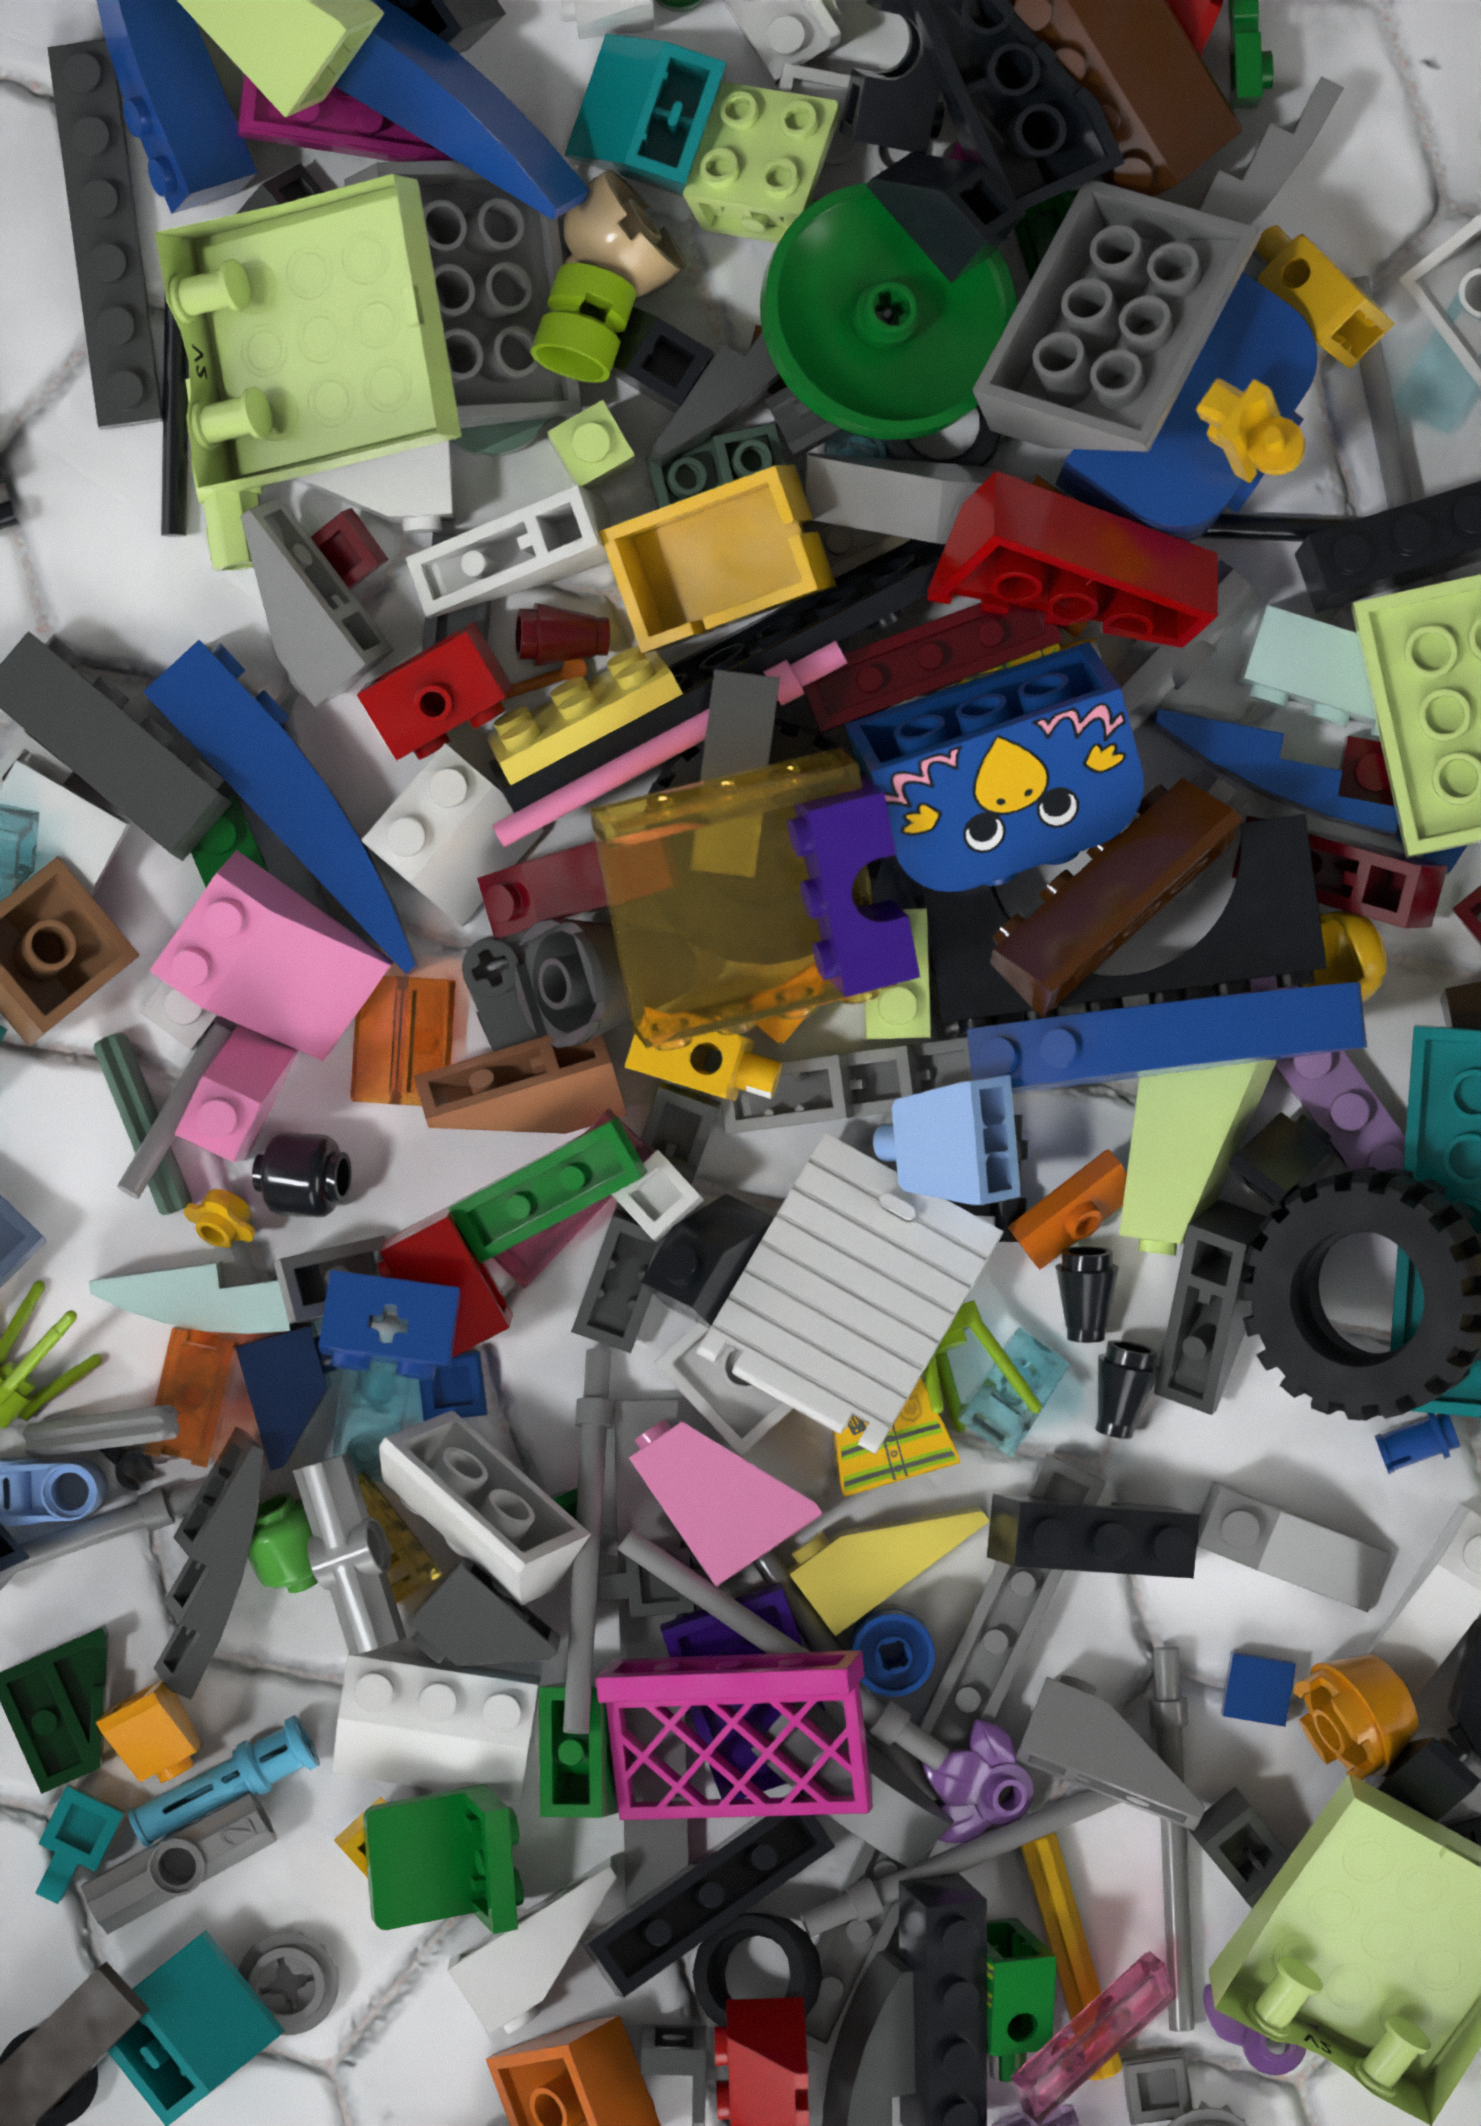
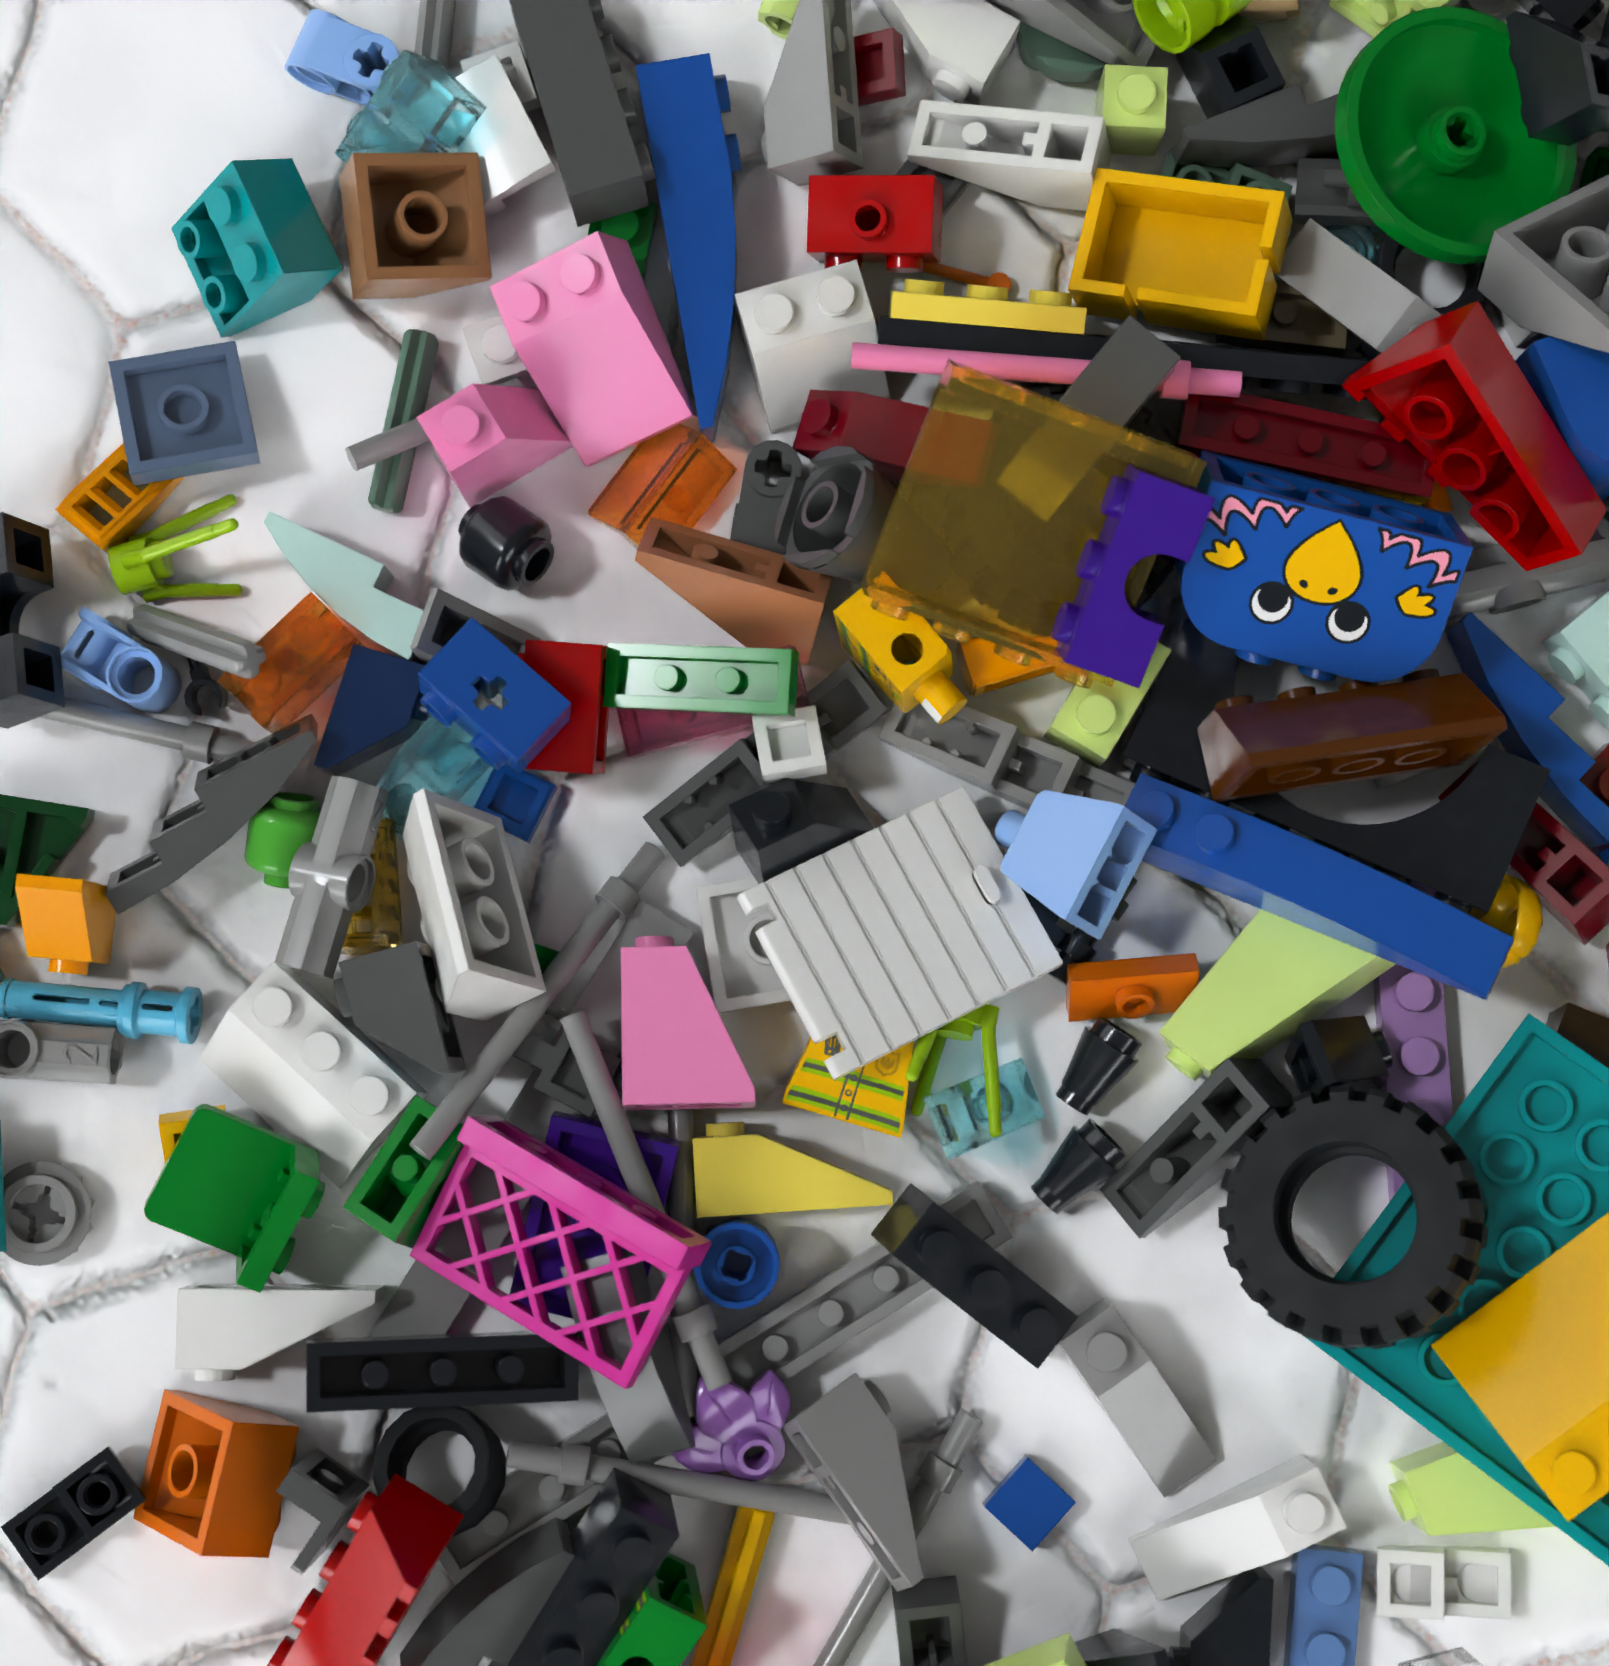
camera: 30 degrees right, 5 degrees down
(221, 1218) = (415, 537): yellow plate -> none
(559, 635) = (1005, 245): dark red cone -> none
(1357, 1713) = (1104, 1582): light orange cone -> none
(1417, 1442) = (1301, 1377): blue pin -> none

